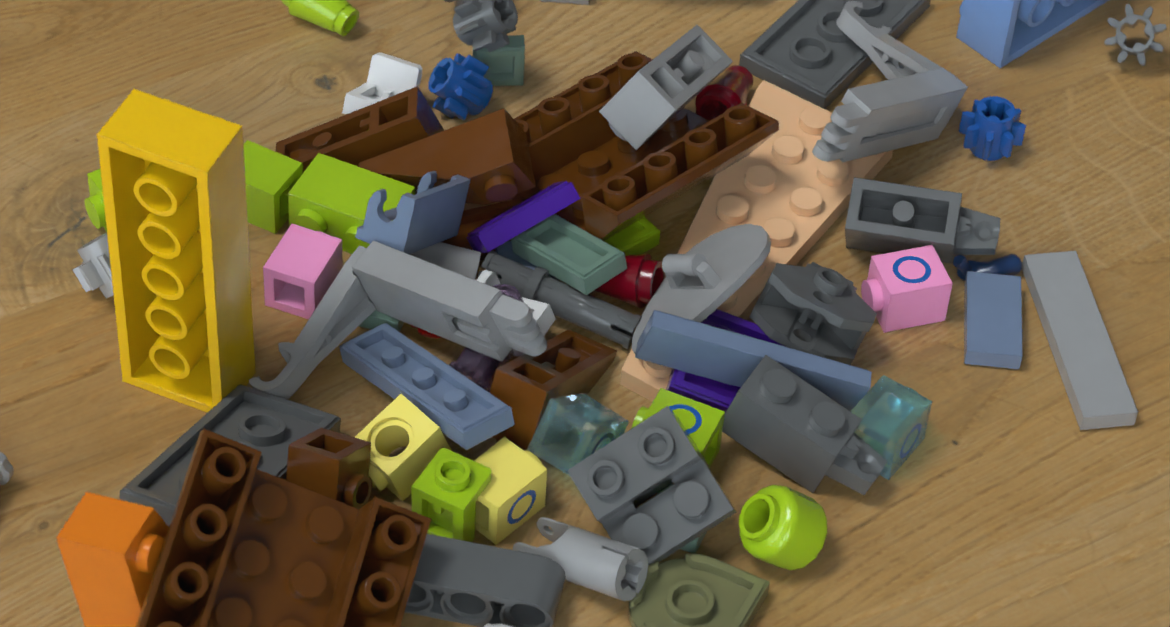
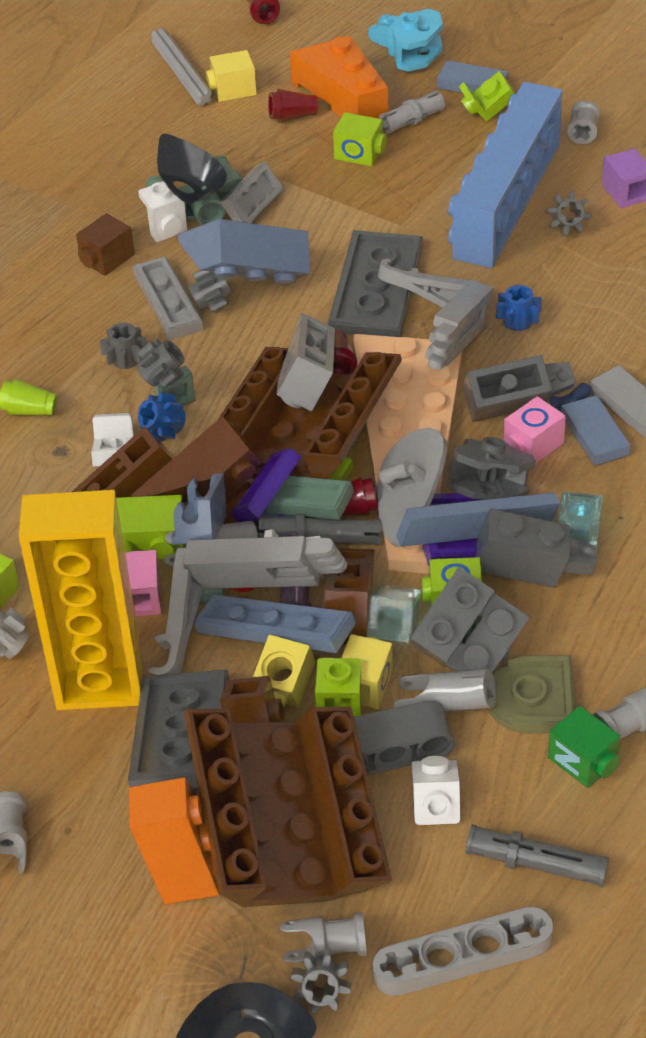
camera: 20 degrees left, 0 degrees up
(783, 527) = (560, 616): lime head -> none

